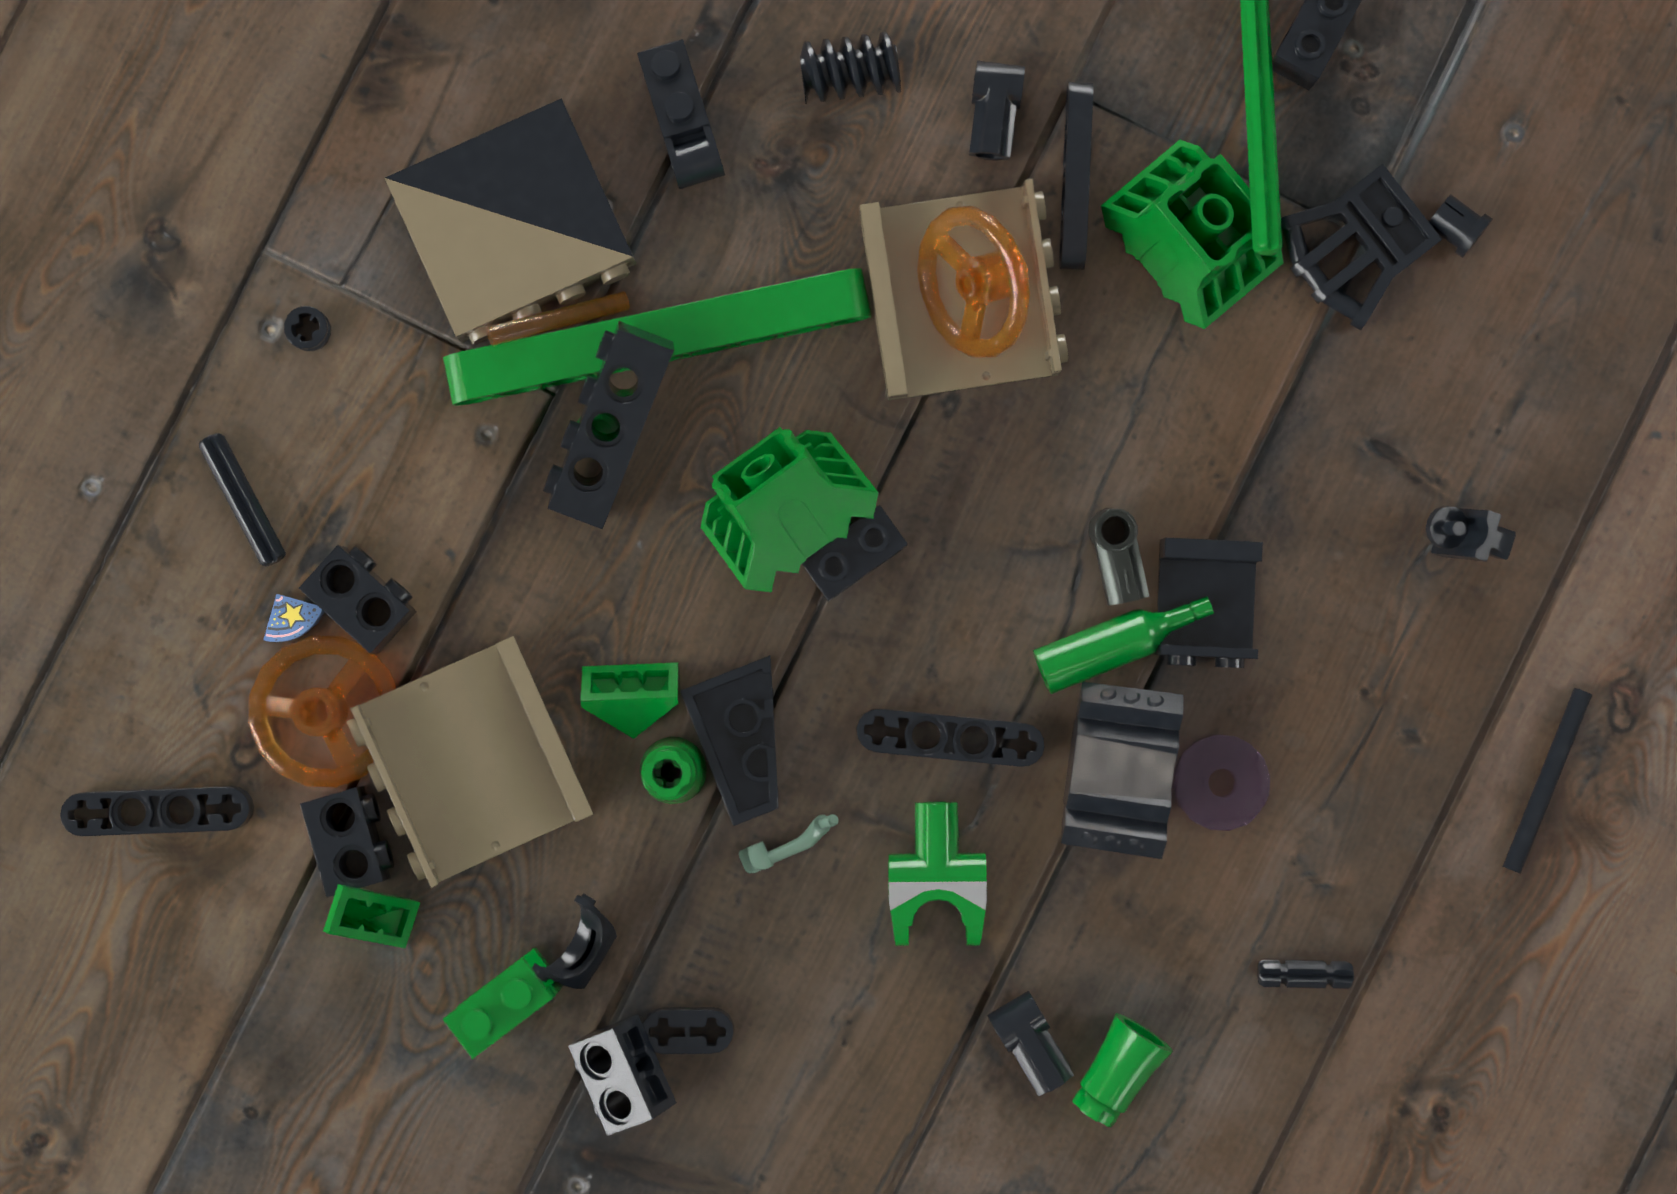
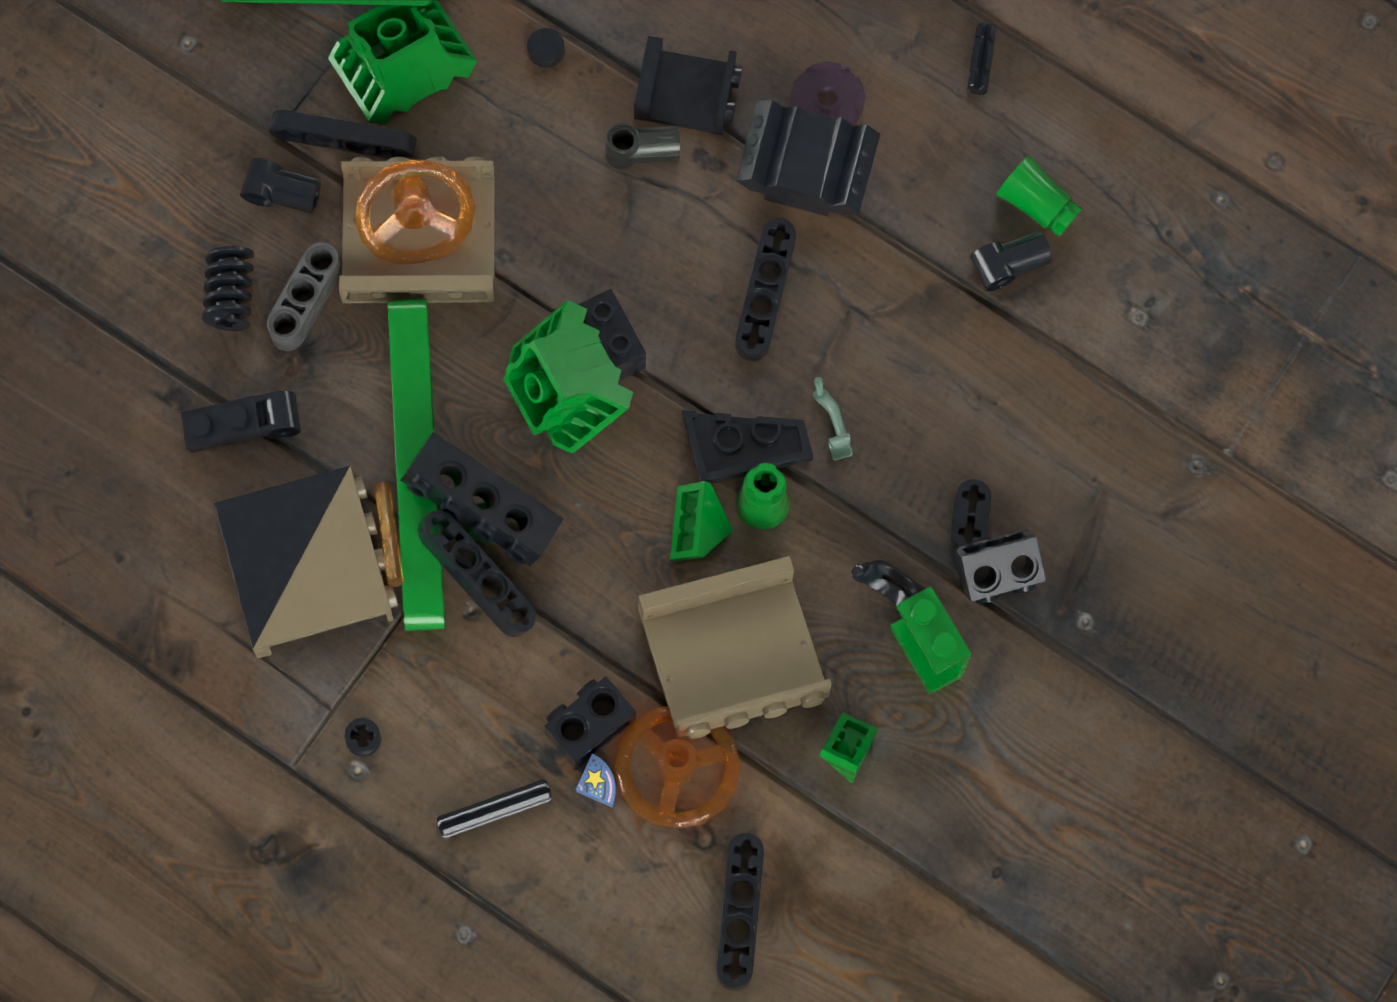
camera: 85 degrees left, 15 degrees down
(333, 844) = (787, 768): black brick -> none
(515, 430) = (481, 569): none -> black beam
(836, 146) = (304, 313): none -> dark grey beam
(937, 873) = (871, 311): green connector -> none
(1112, 644) = (710, 160): green piece -> none
(1237, 413) = (545, 47): none -> black tile

